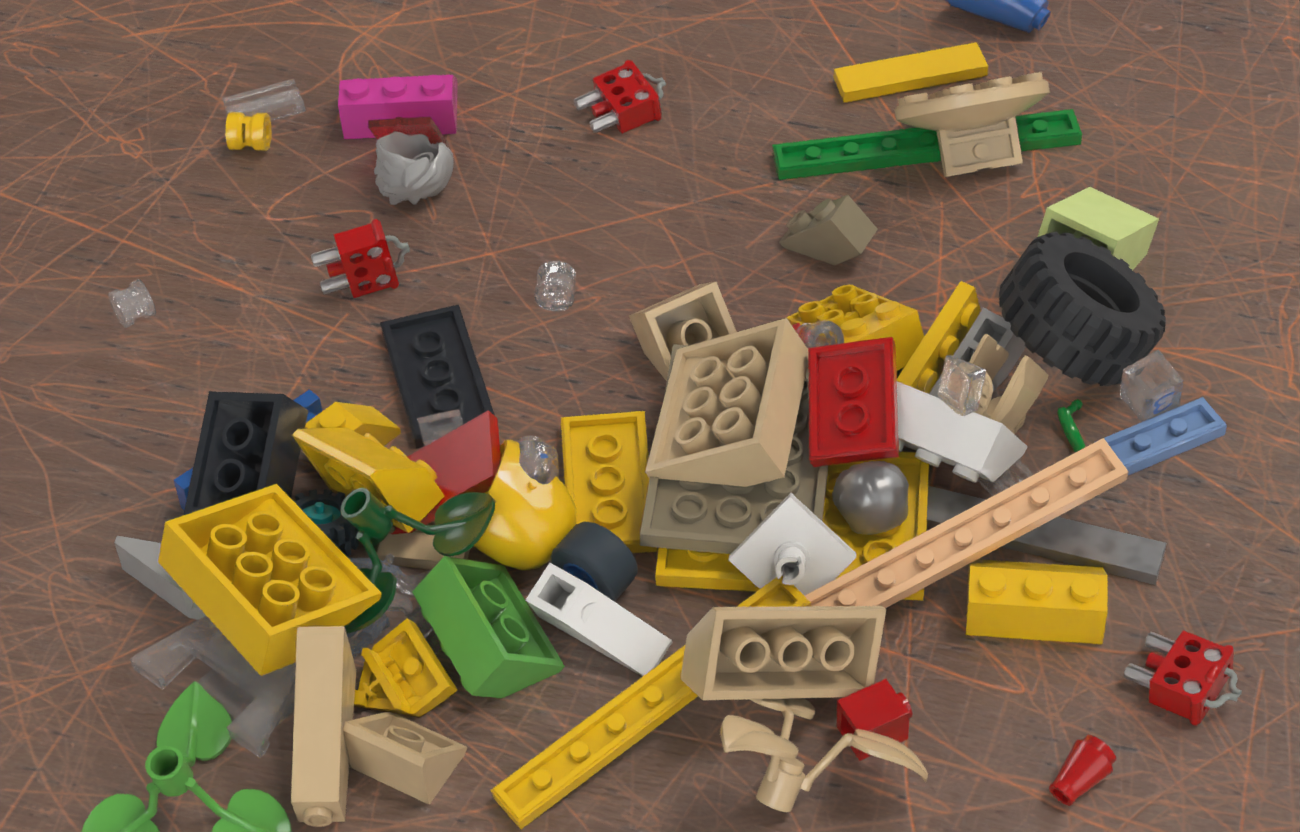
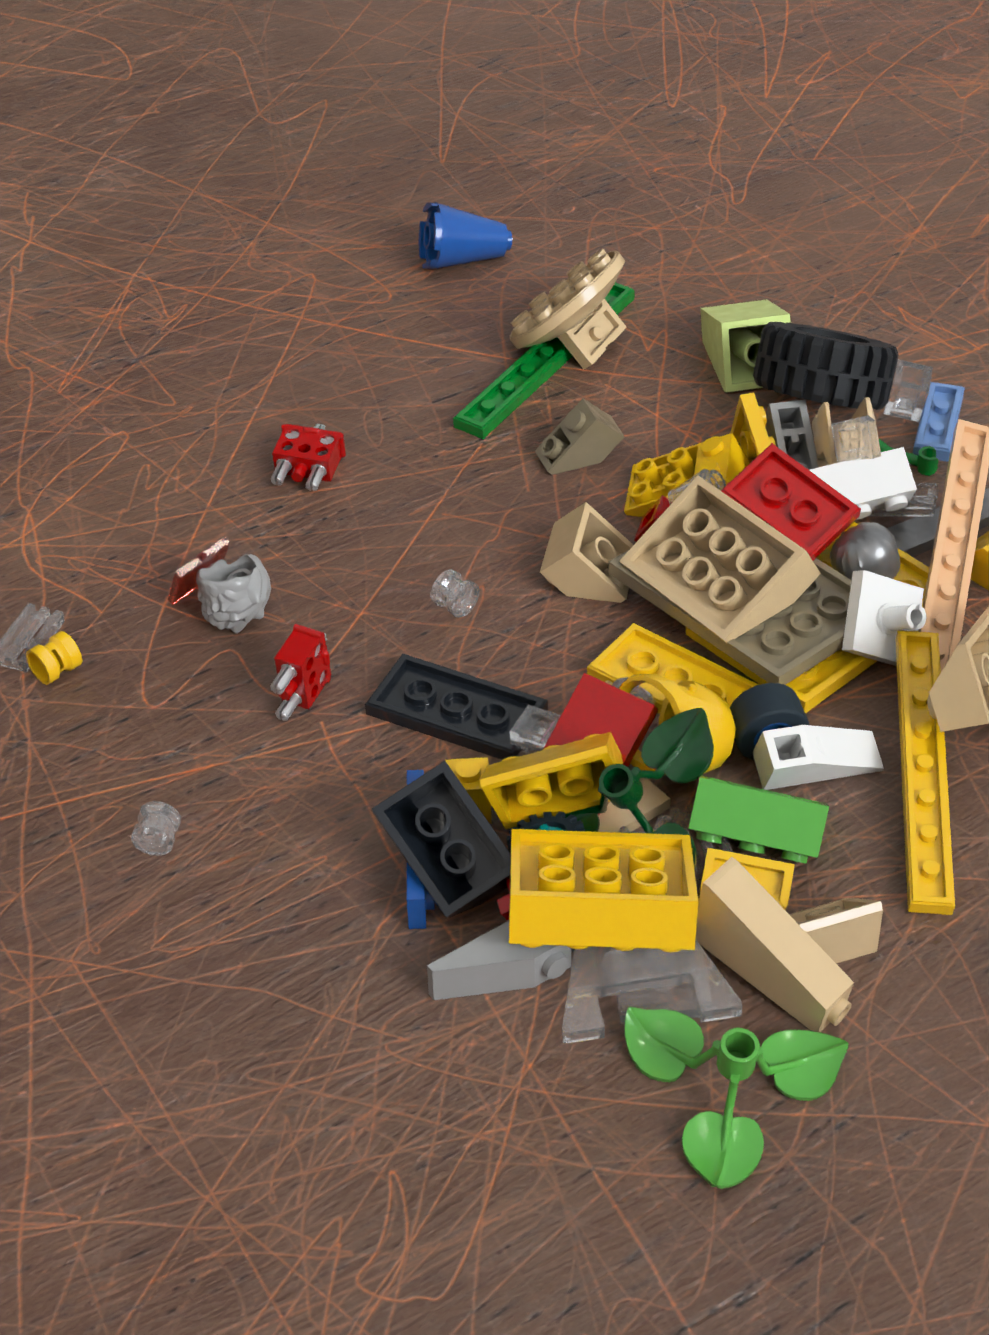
camera: 50 degrees left, 5 degrees down
(397, 97) = (144, 565): dark pink slope -> none
(910, 72) = (468, 323): yellow tile -> none

